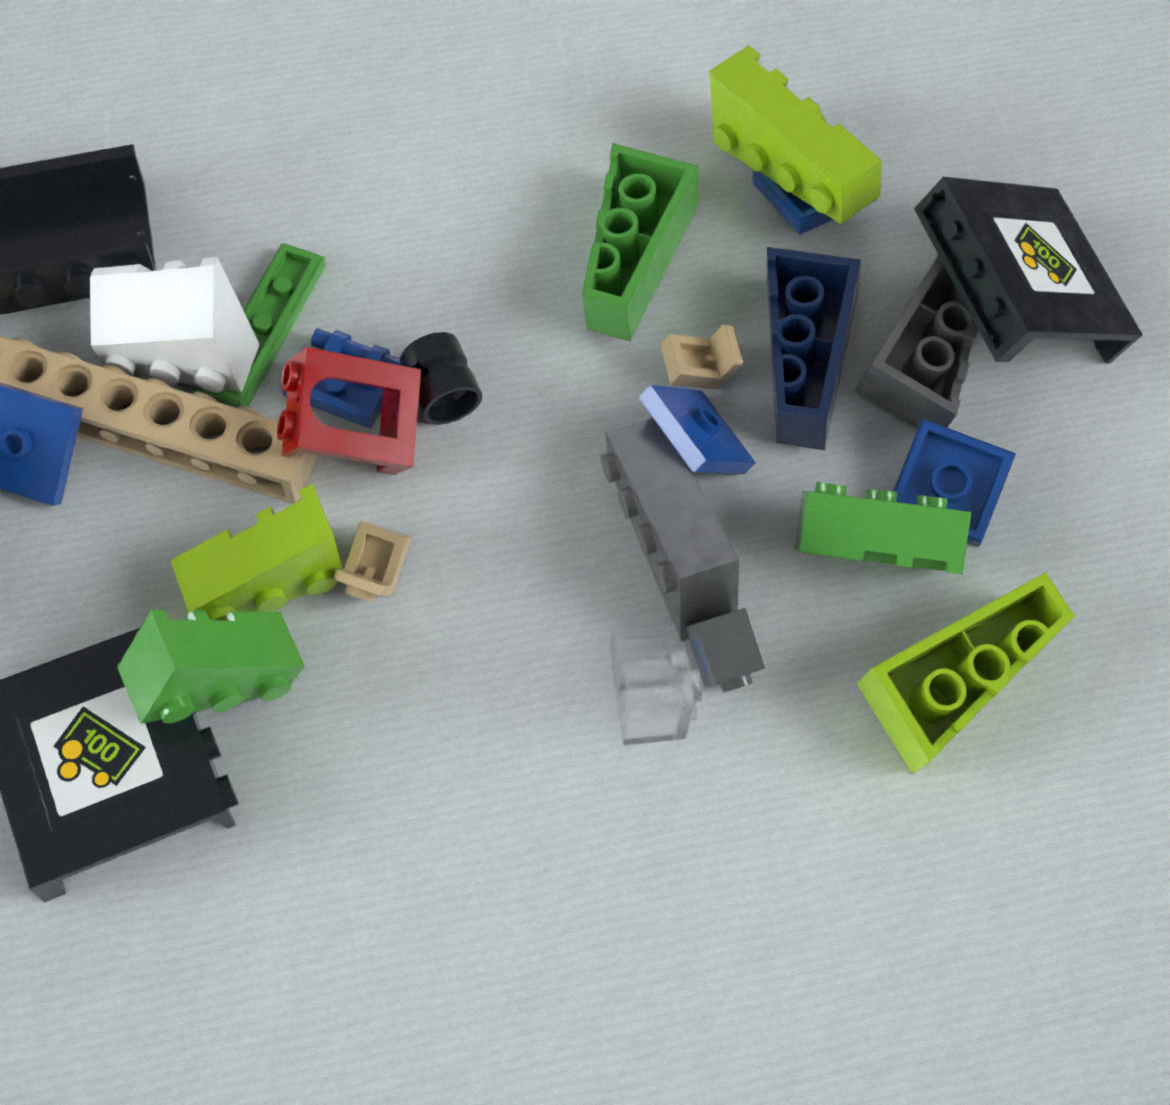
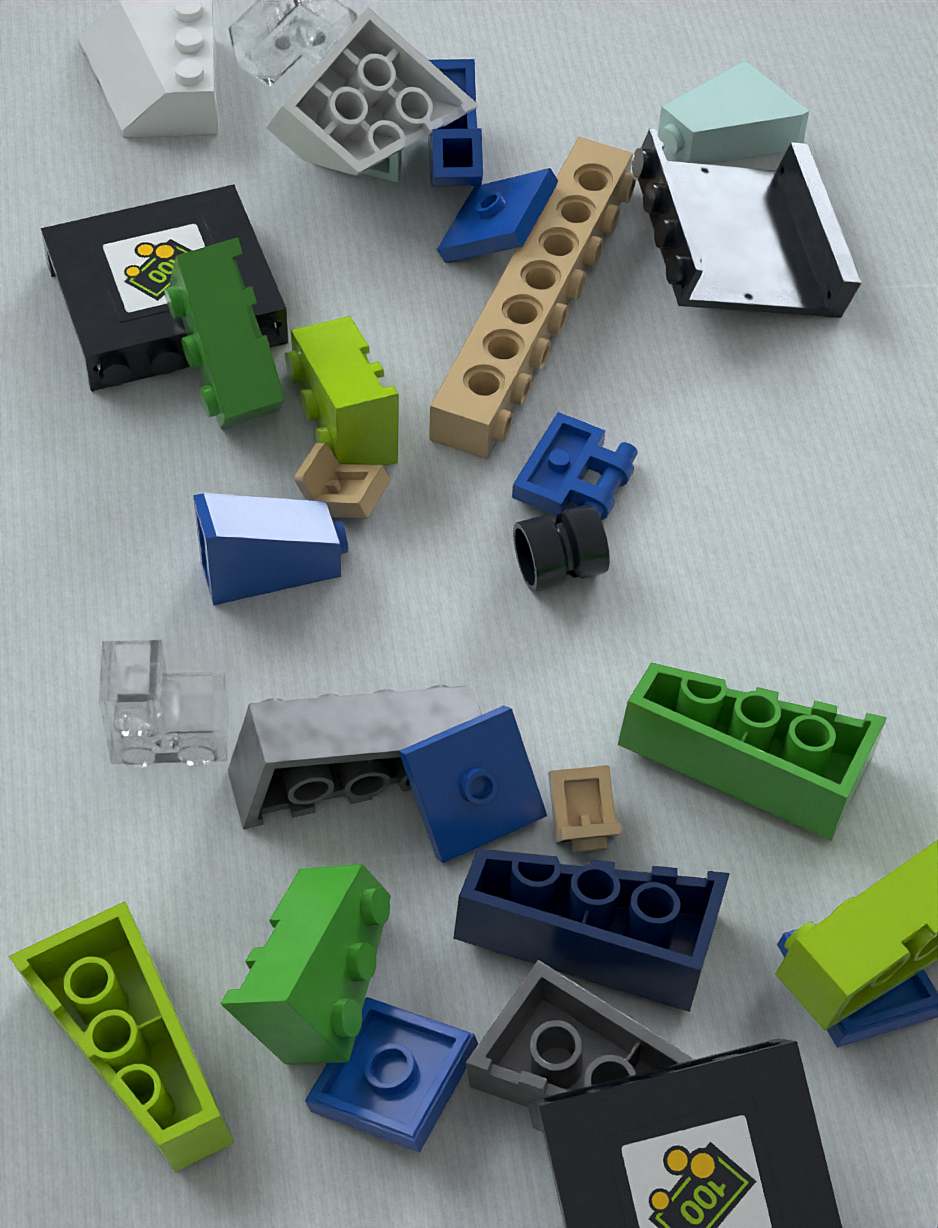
camera: 95 degrees right, 10 degrees down
(172, 324) = (609, 317): white wedge -> none
(273, 313) = (647, 411): bright green tile -> none
(303, 432) = (509, 503): red panel -> none
(458, 616) = (265, 544): none -> blue slope
(726, 650) = (193, 788): dark grey brick -> none

